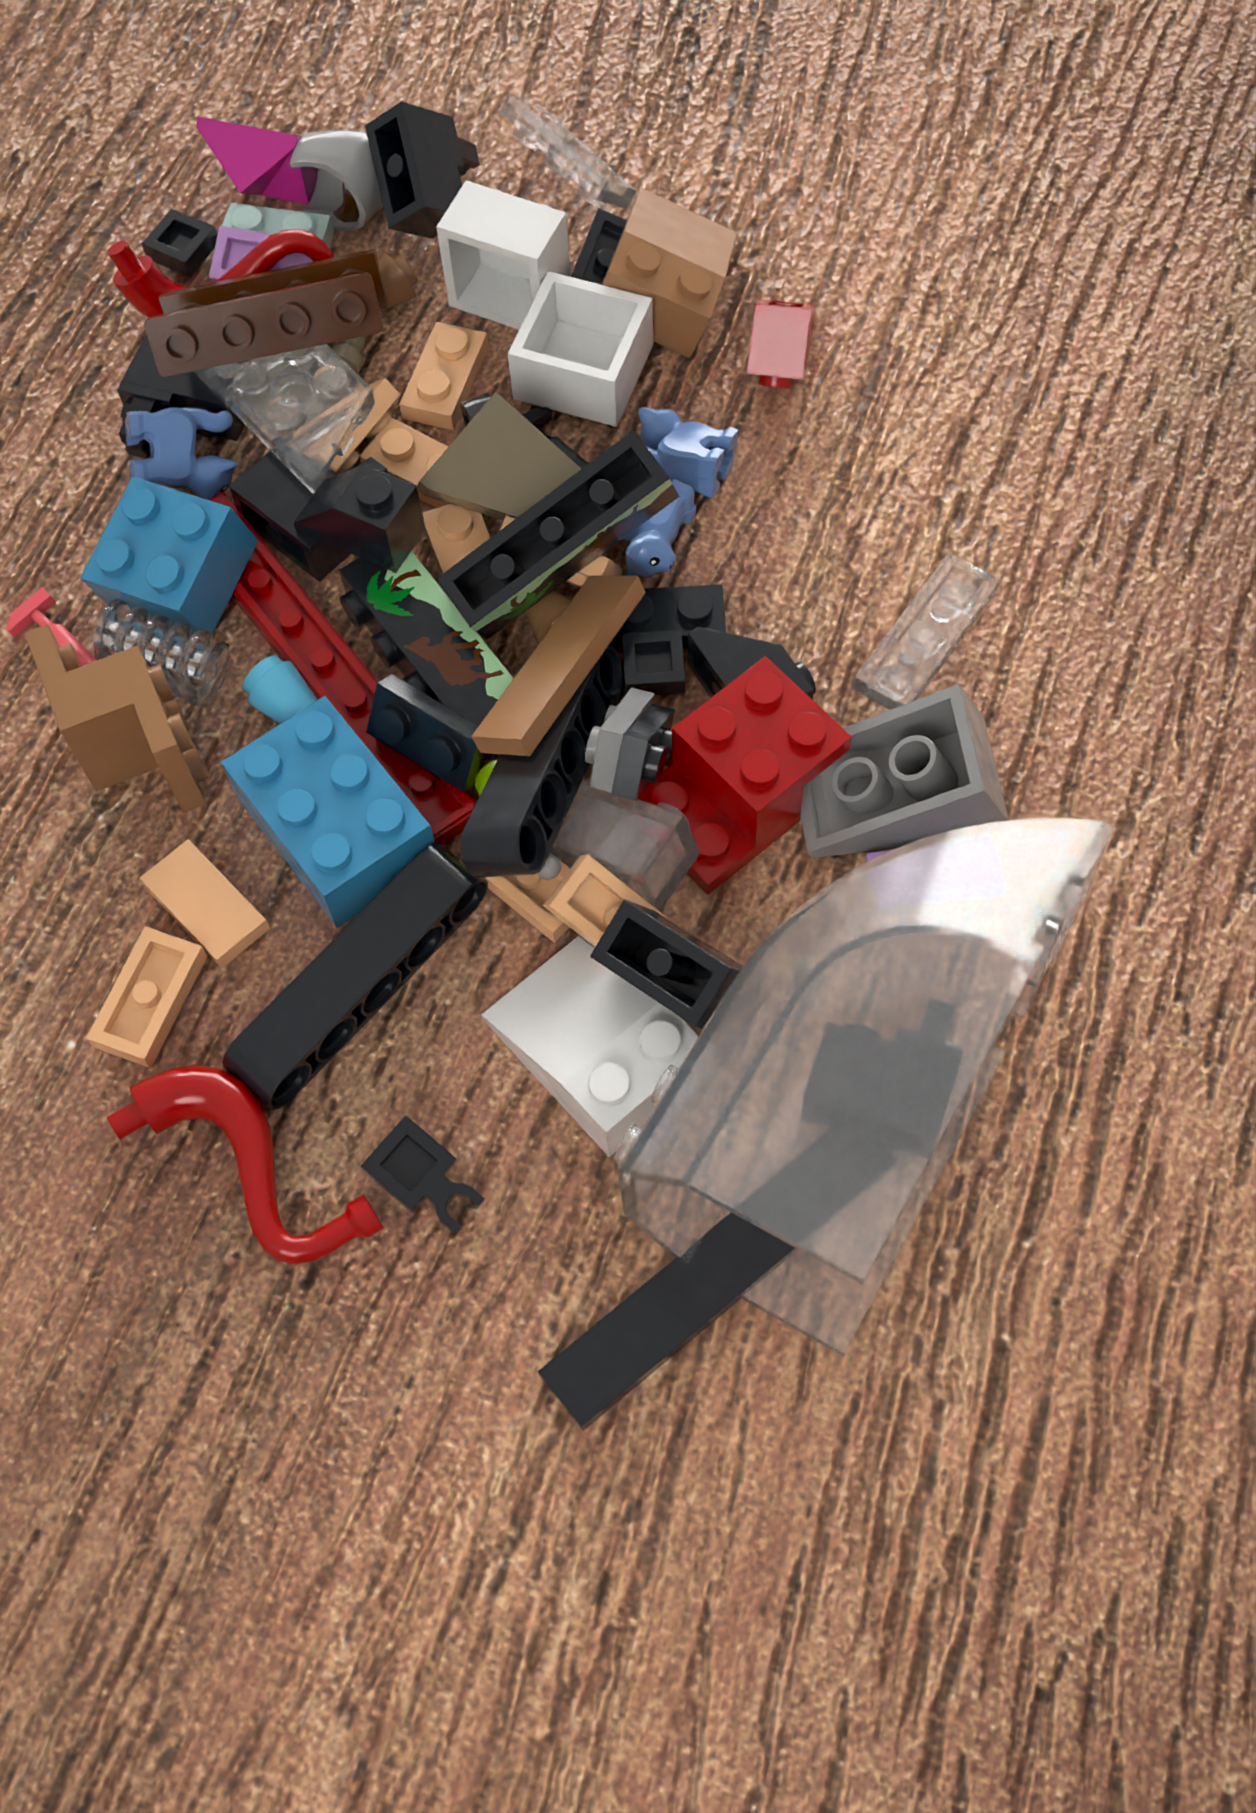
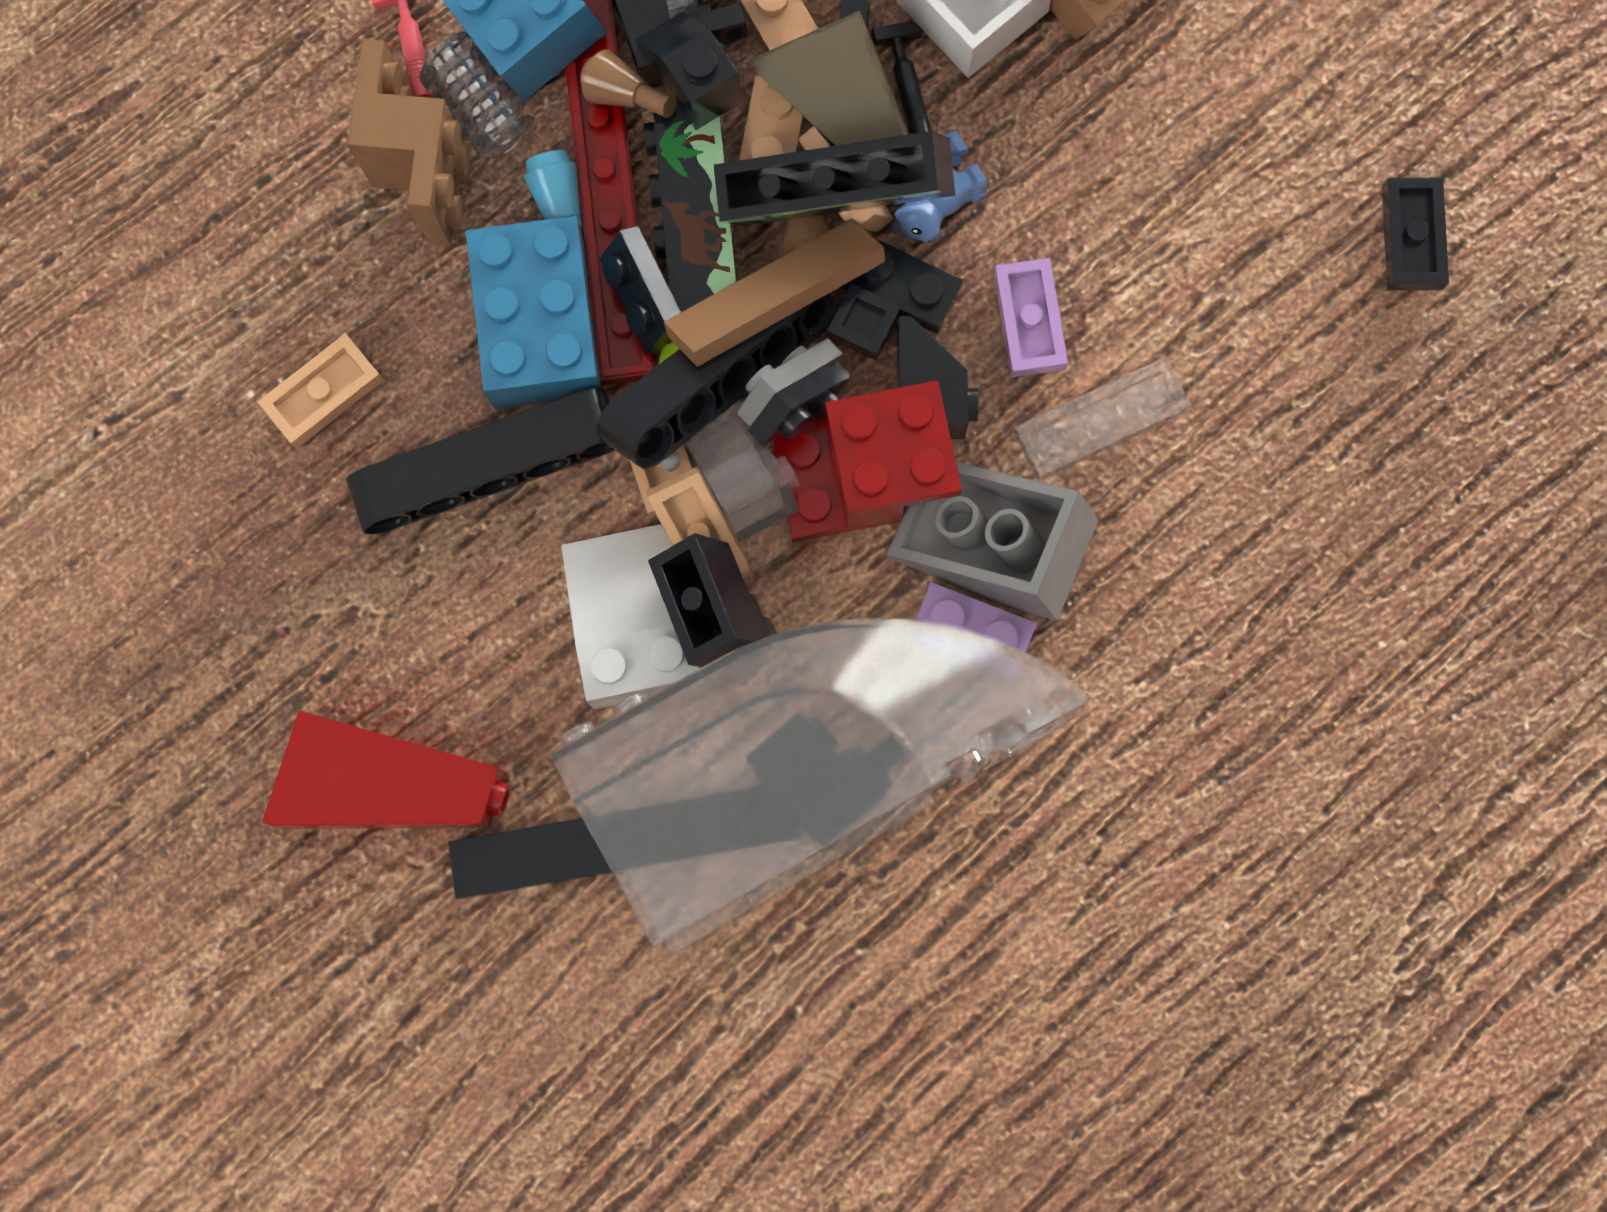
camera: 30 degrees right, 15 degrees up
(205, 903) = (403, 334): light nougat tile -> none
(226, 1101) = (332, 505): red animal -> none
(292, 572) = (612, 82): none -> medium nougat cone
(414, 1168) = (442, 640): black plate -> none
(424, 1348) = (371, 781): none -> red slope
(689, 449) = (1007, 140): medium blue animal -> none
(780, 342) = (1157, 69): slope -> none
(804, 584) = (1030, 317): none -> lavender plate
(1089, 357) = (1415, 234): none -> black plate

